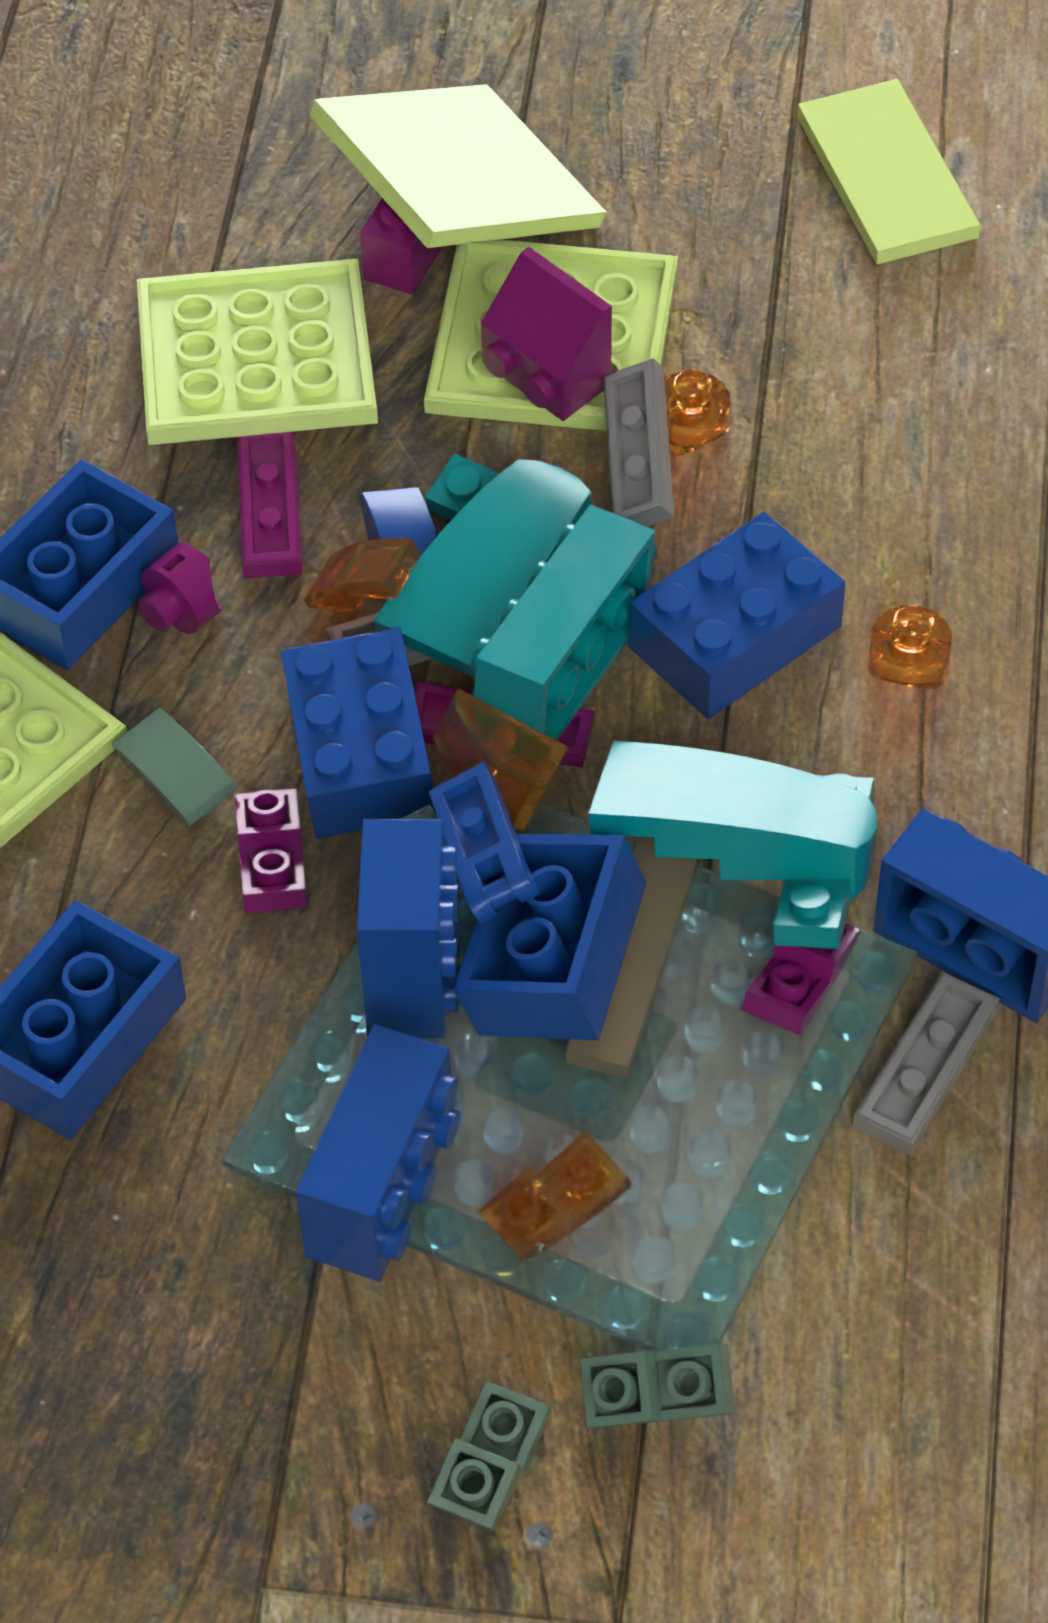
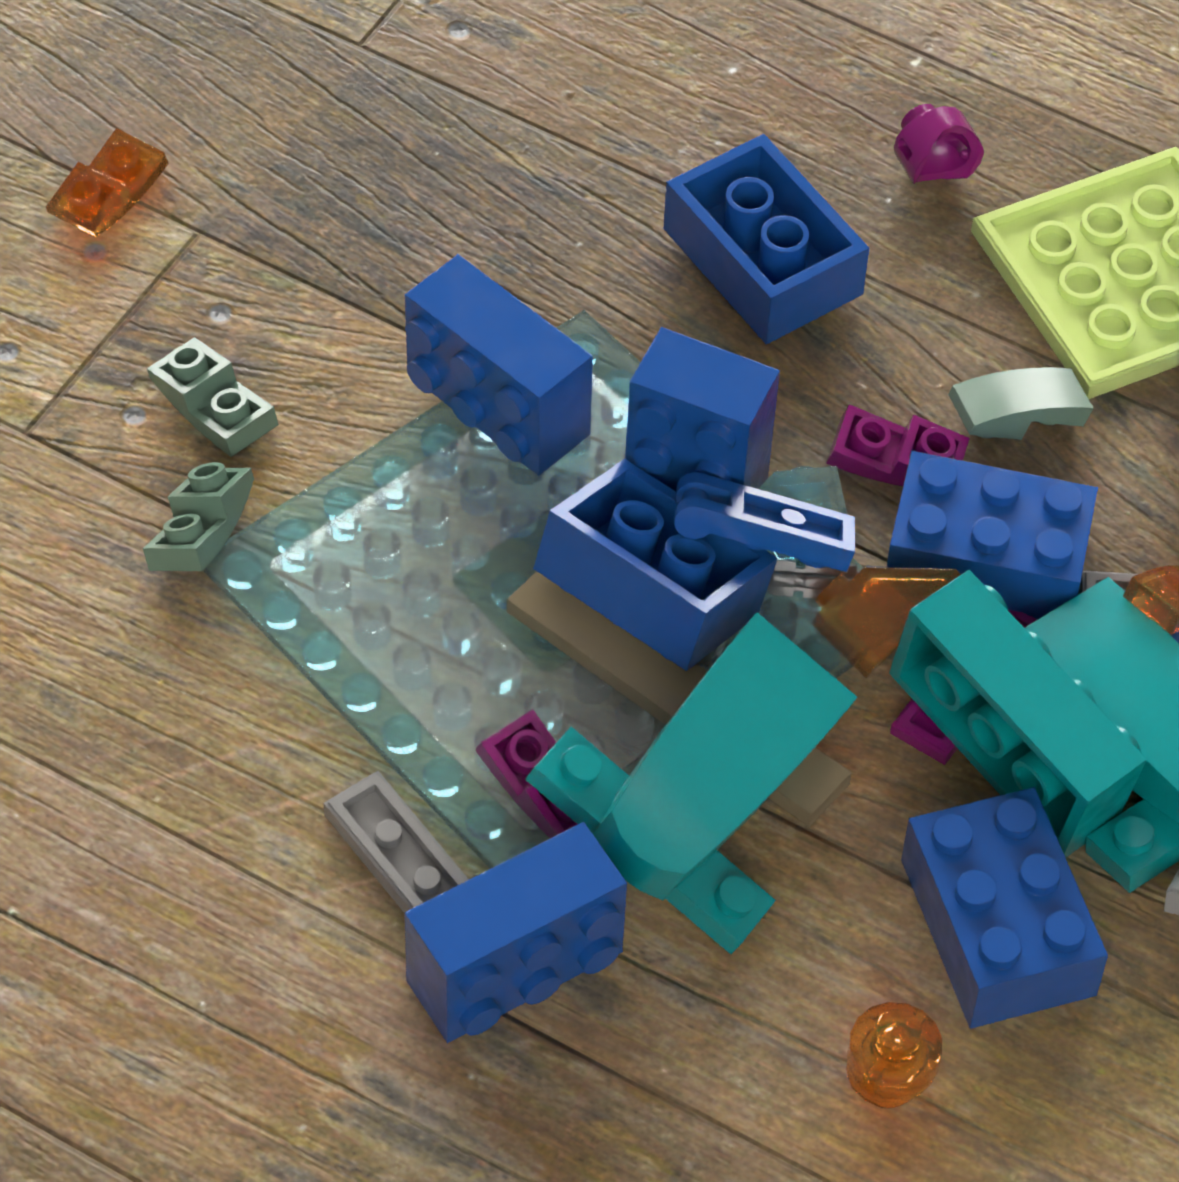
camera: 110 degrees right, 0 degrees up
(557, 1200) = (410, 506): clear orange slope -> none

